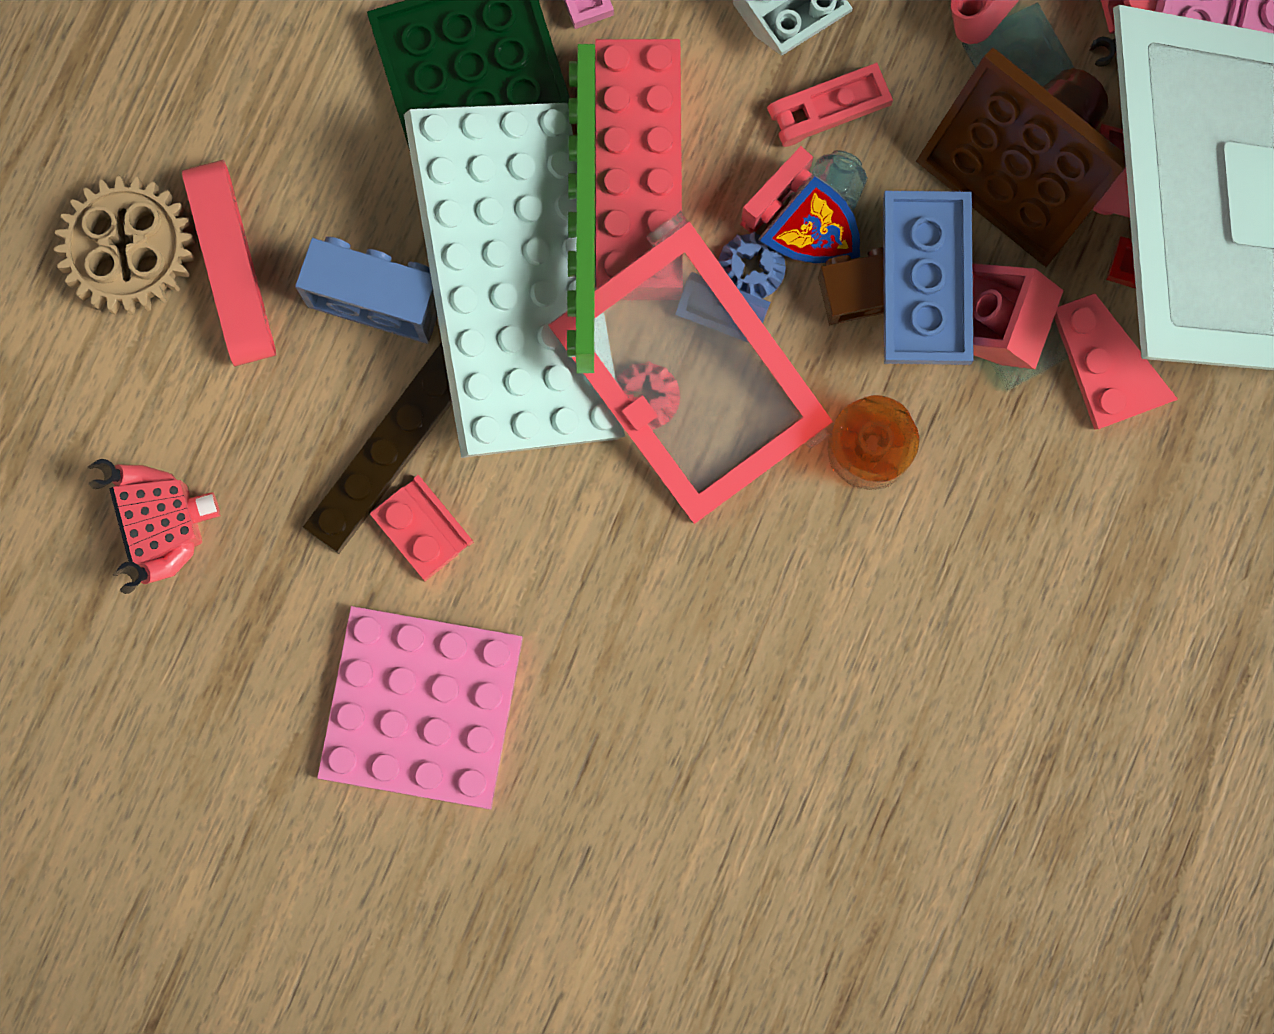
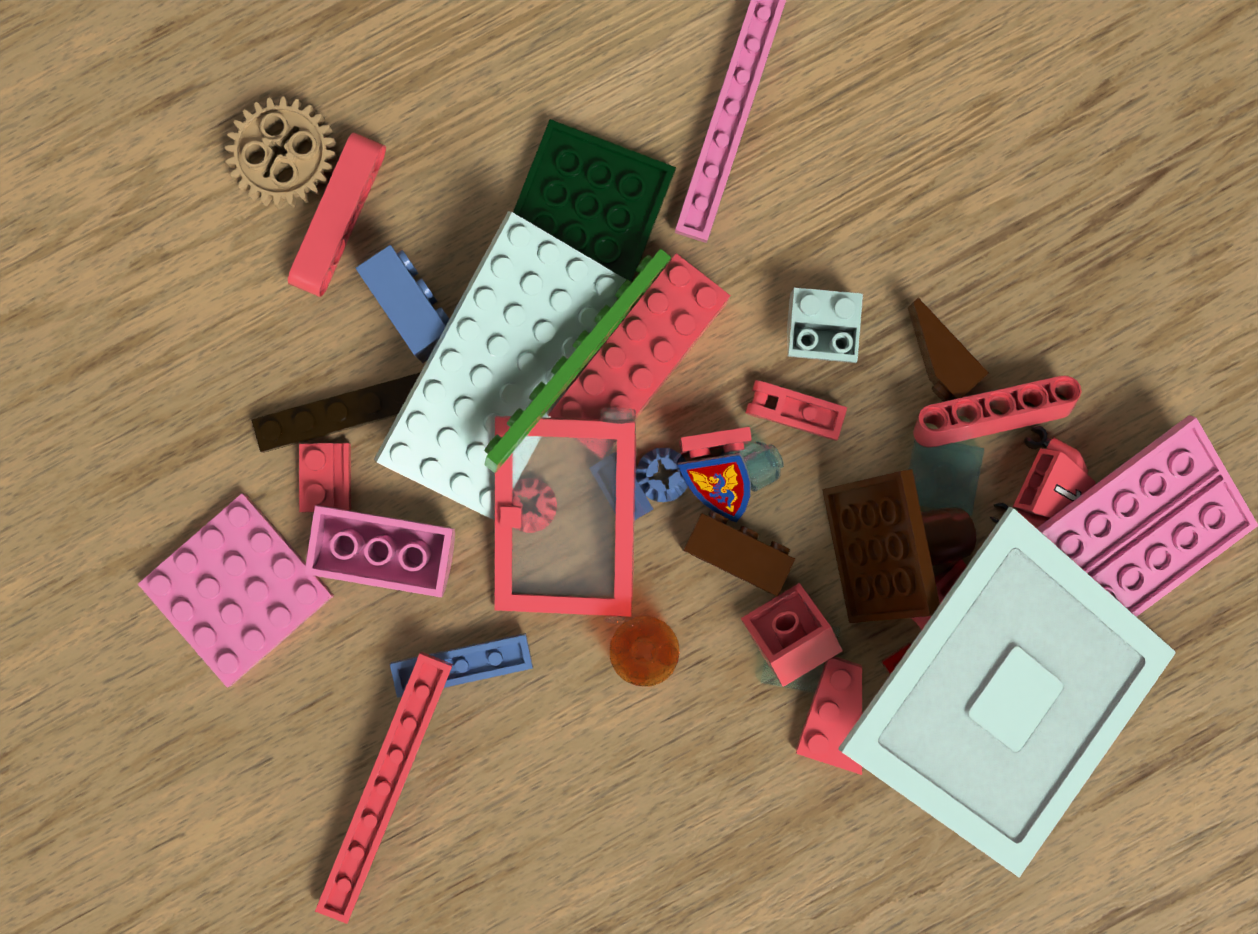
camera: 35 degrees right, 5 degrees up
(154, 520) = (163, 344): coral torso -> none
(536, 549) = (380, 551): none -> bright pink brick
(705, 601) = (473, 662): none -> medium blue plate
(727, 780) = (384, 787): none -> coral plate
(928, 277) = (761, 575): medium blue plate -> none

